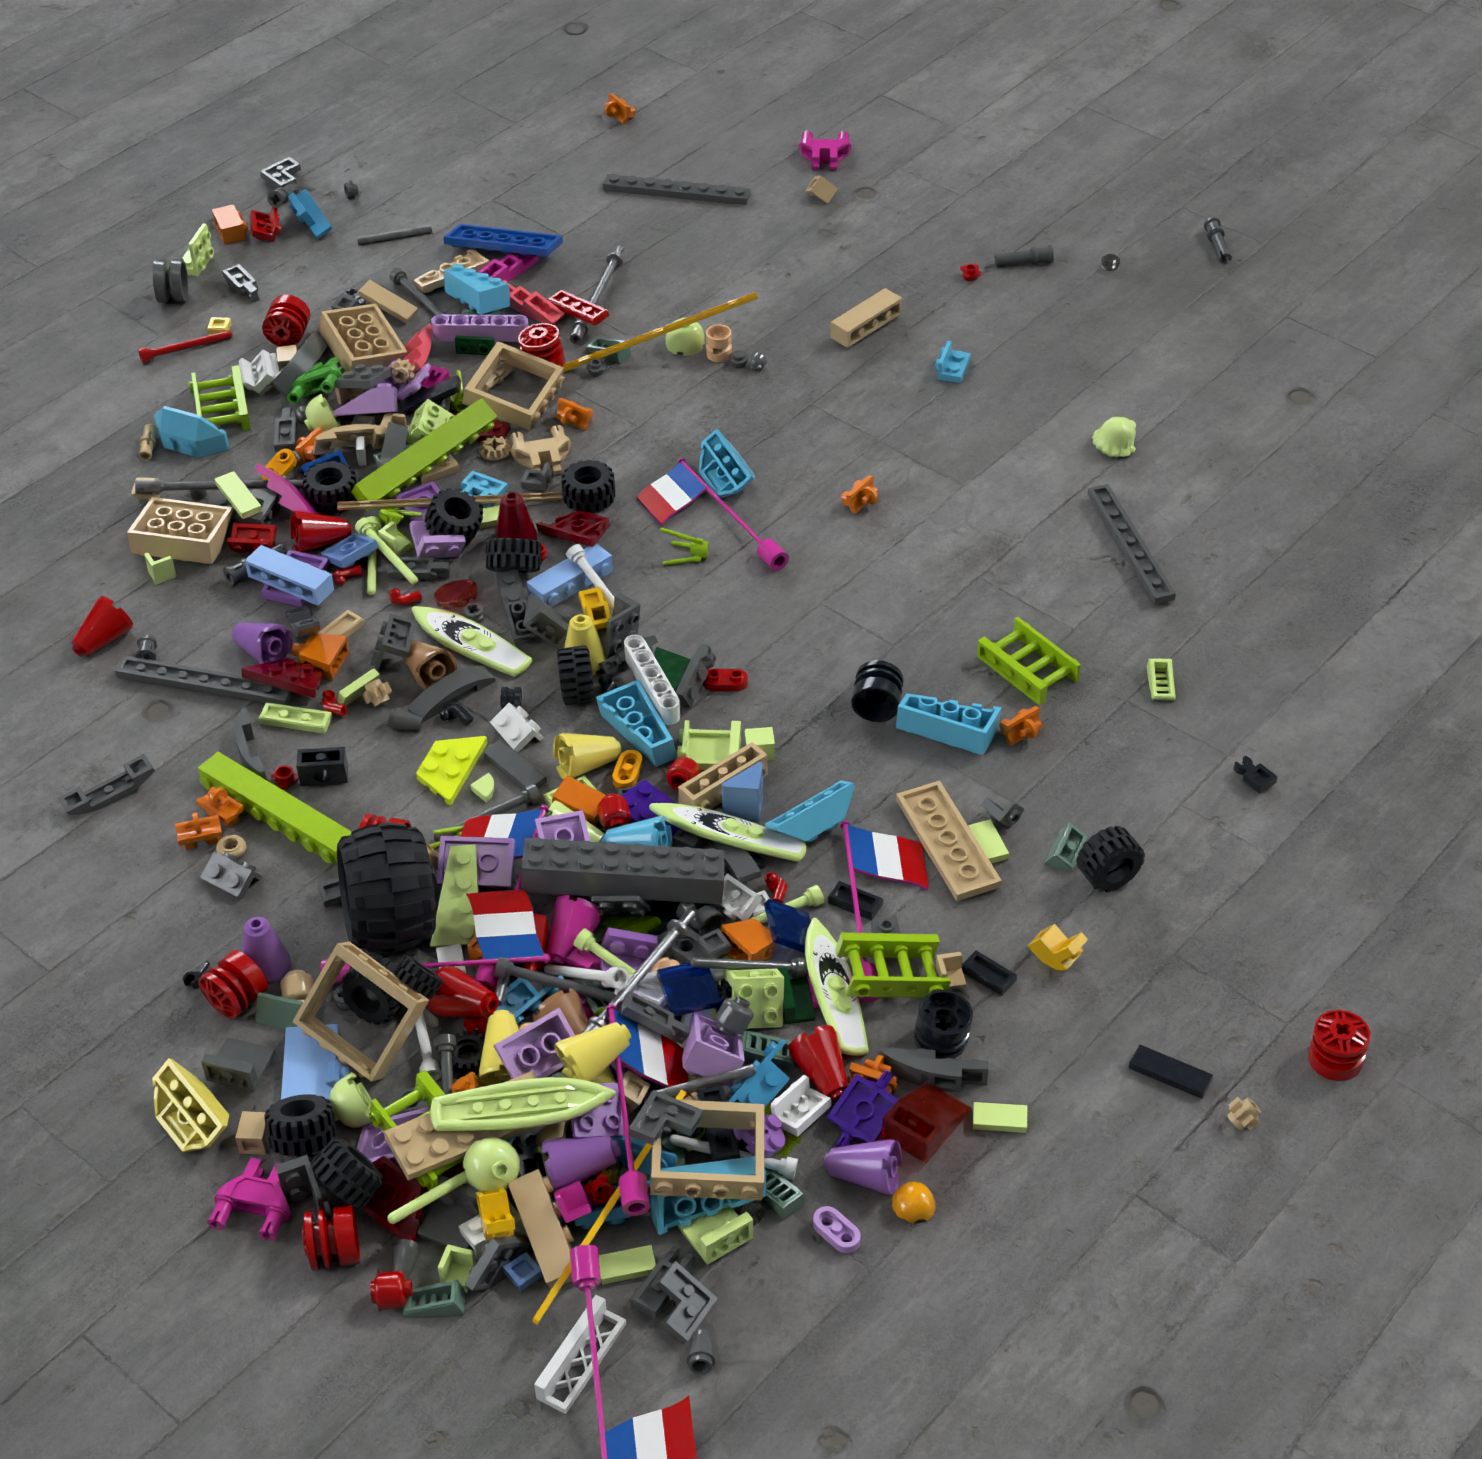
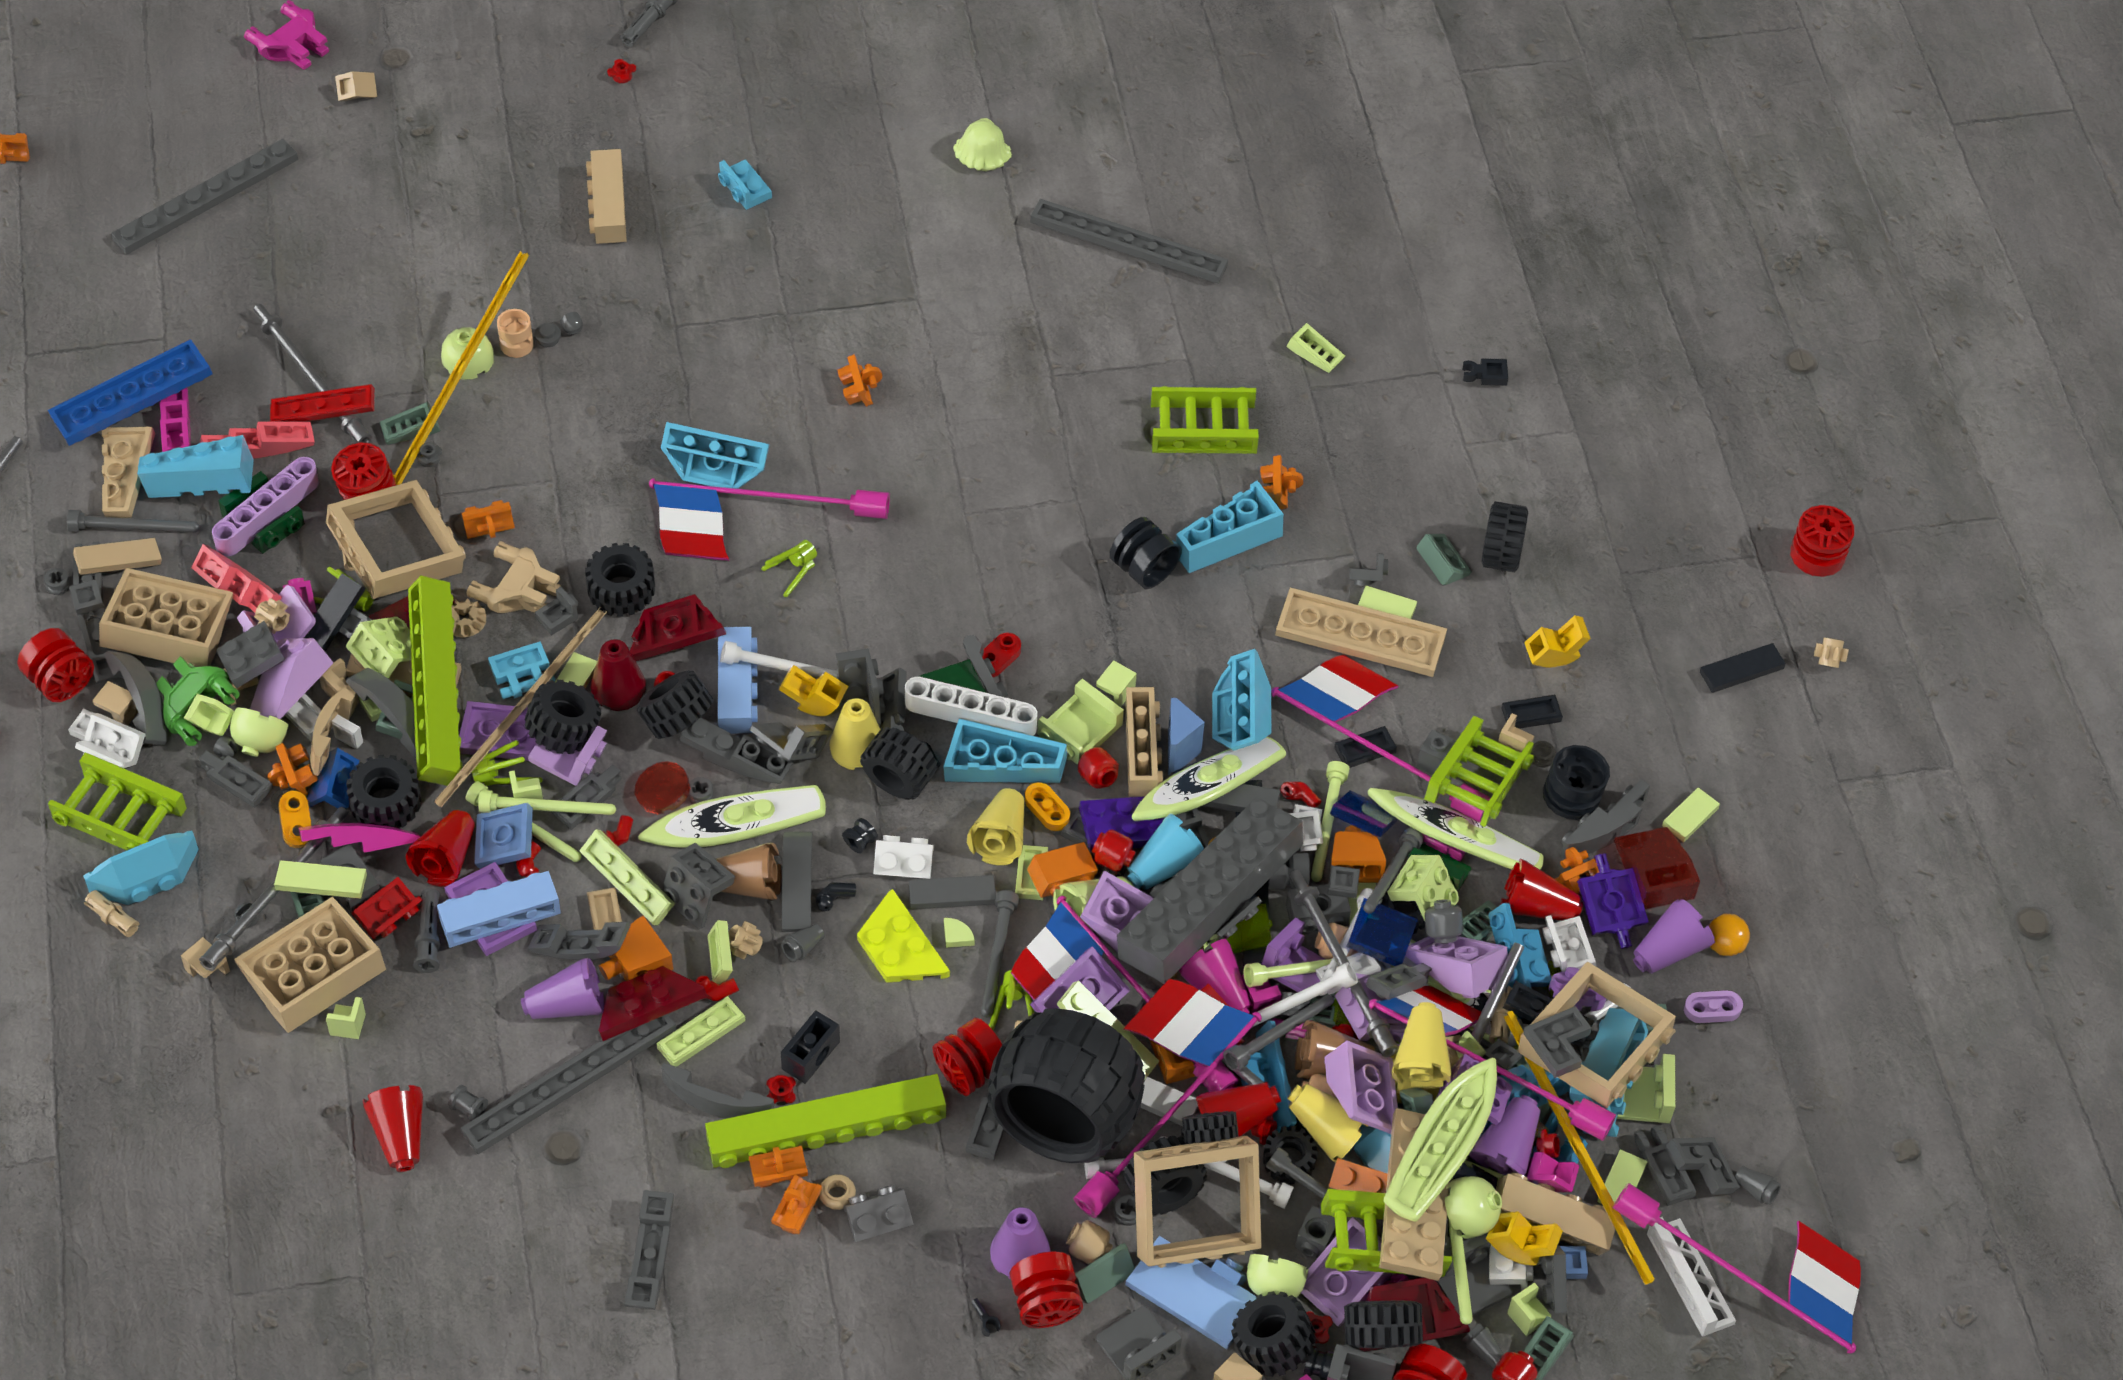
camera: 55 degrees left, 10 degrees up
(310, 389) = (209, 715): none -> yellowish green panel
(373, 618) = (627, 877): none -> yellowish green tile
(638, 1093) = (1469, 1042): none -> yellowish green tile

